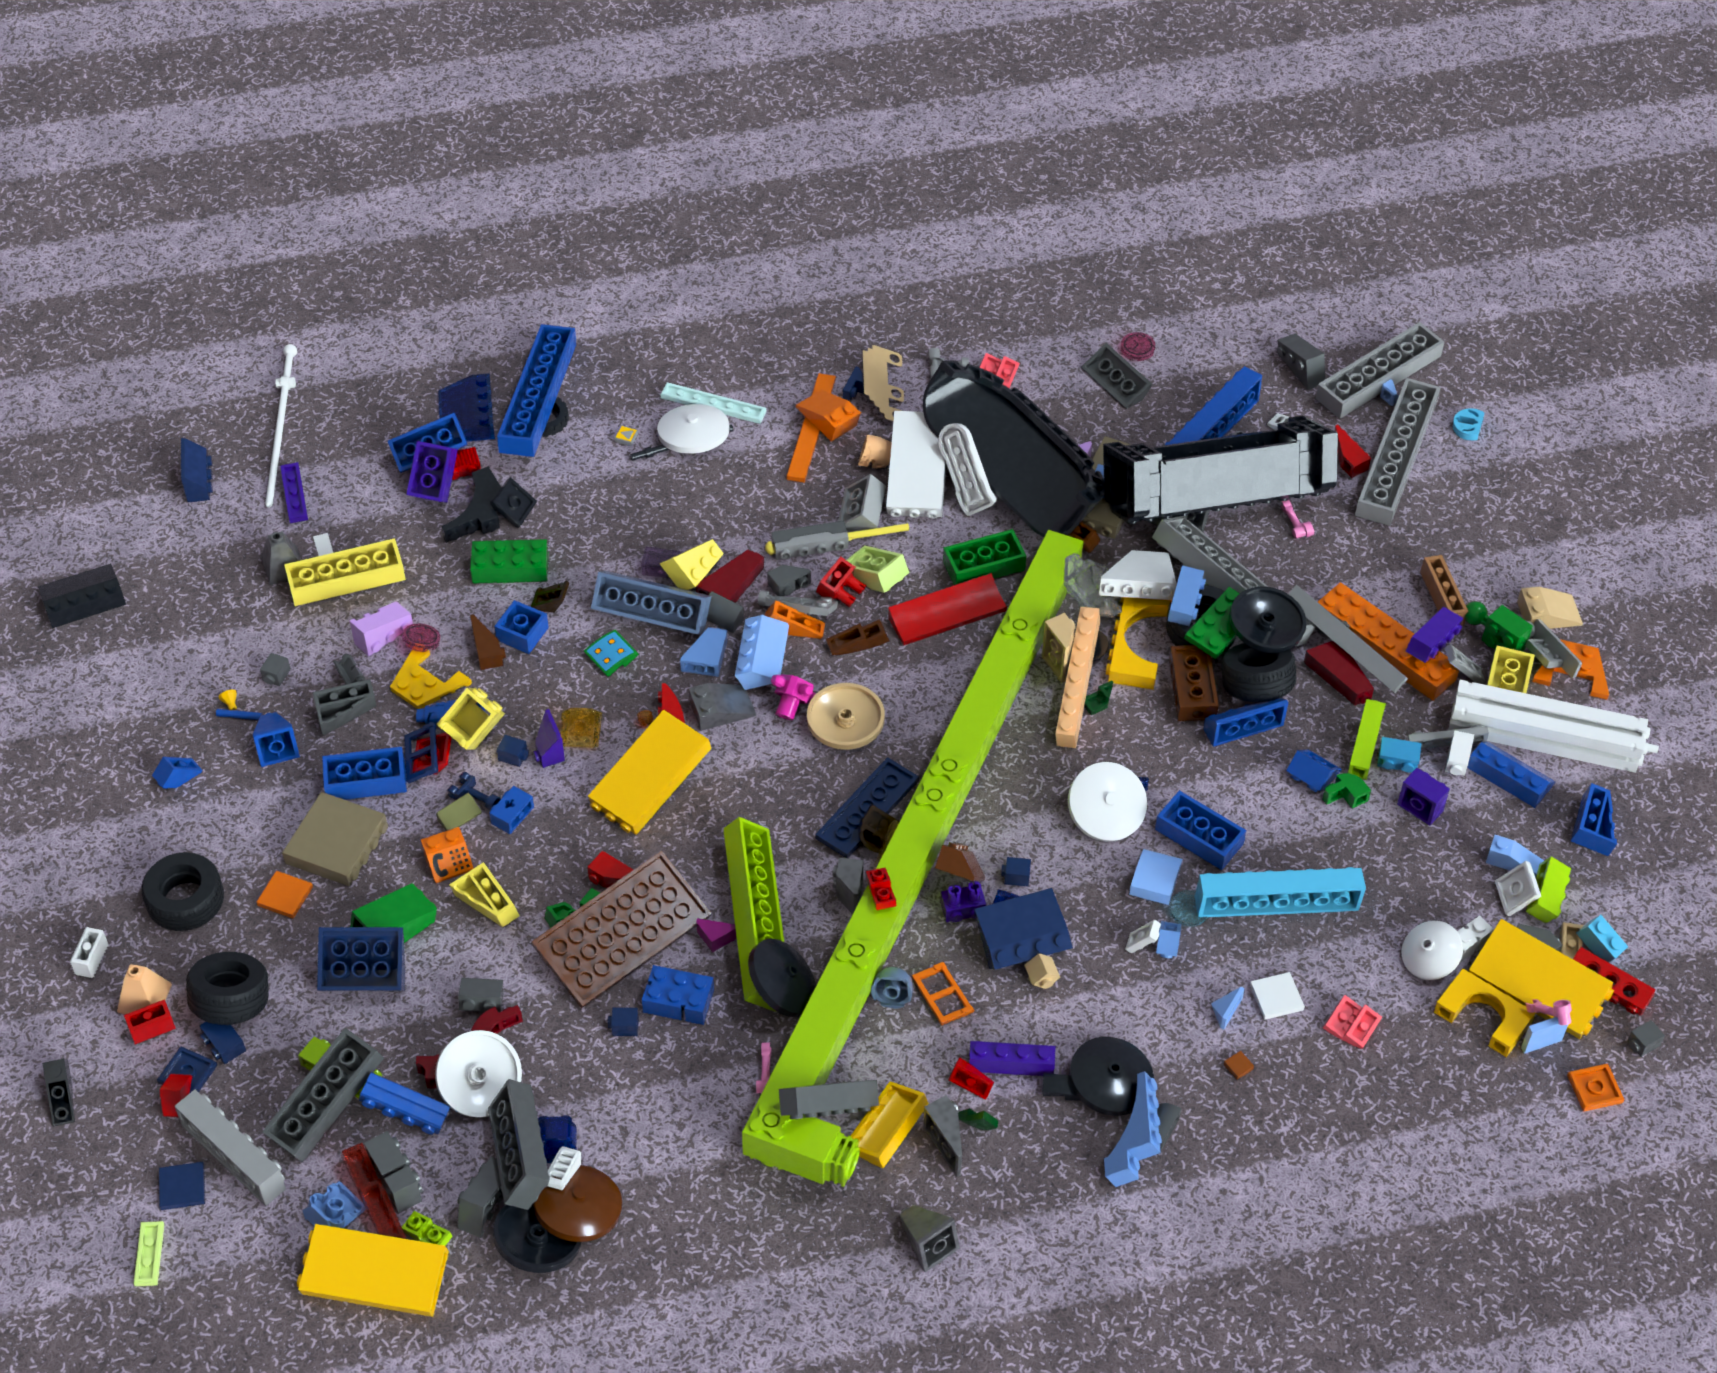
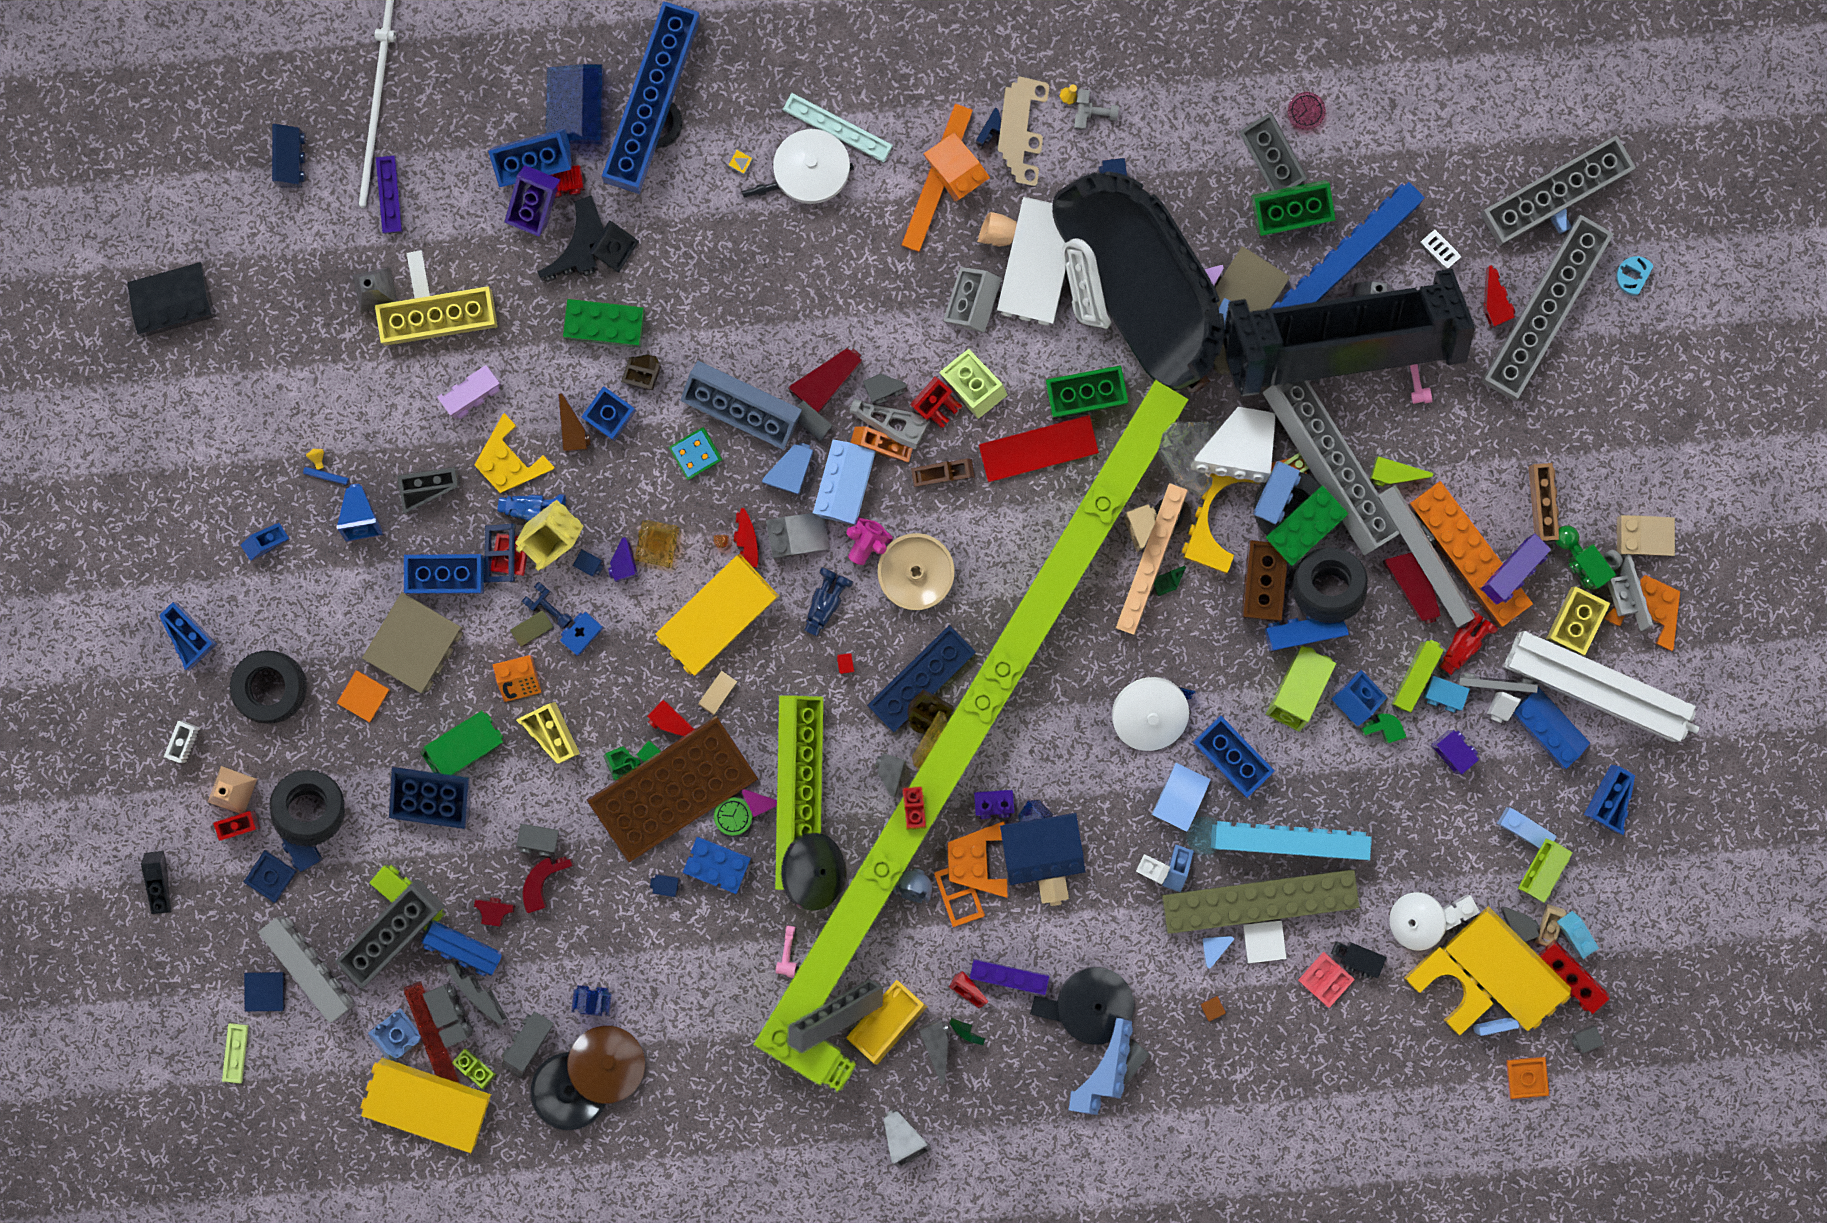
camera: 10 degrees right, 35 degrees up
(96, 857) = (188, 637): none -> blue wedge
(173, 1091) = (259, 902): red slope -> none
(275, 669) = (361, 429): dark grey brick -> none
(347, 669) = (435, 448): dark grey hinge -> none
(421, 637) = (508, 409): clear pink tile -> none
(426, 1147) = (483, 999): none -> dark grey slope
(475, 1070) = (528, 929): white dish -> none
(518, 1144) = (557, 1012): dark grey brick -> none
(564, 1166) = (596, 1021): white slope -> none
(651, 559) = (758, 346): clear purple brick -> none
(660, 840) = (717, 693): none -> tan slope
(689, 952) = (733, 816): none -> bright green tile
(692, 565) = (789, 361): light yellow wedge -> none
(757, 755) = (823, 603): none -> dark blue piece
(787, 802) = (845, 663): none -> red slope
(820, 539) = (924, 338): piece -> none
(921, 356) = (1069, 95): none -> yellow rock
(947, 959) = (969, 861): none -> orange wing
(959, 861) = (997, 771): reddish brown slope -> none
(1002, 368) = (1146, 126): coral slope -> none
(1016, 871) = (1050, 774): dark blue brick -> none
(1144, 404) = (1293, 207): none -> green brick
(1252, 768) = (1301, 688): none -> lime slope
(1261, 955) = (1260, 901): none -> olive brick
(1267, 619) = (1367, 533): black dish -> none
(1302, 359) = (1477, 161): dark grey wedge -> none
(1311, 585) = (1391, 472): none -> lime slope
(1382, 994) = (1360, 958): none -> black brick
(1405, 712) = (1466, 645): none -> red piece
(1464, 664) = (1537, 603): light grey tile -> none
(1517, 888) = (1516, 866): white tile -> none
(1560, 1009) = (1512, 1022): bright pink brick -> none

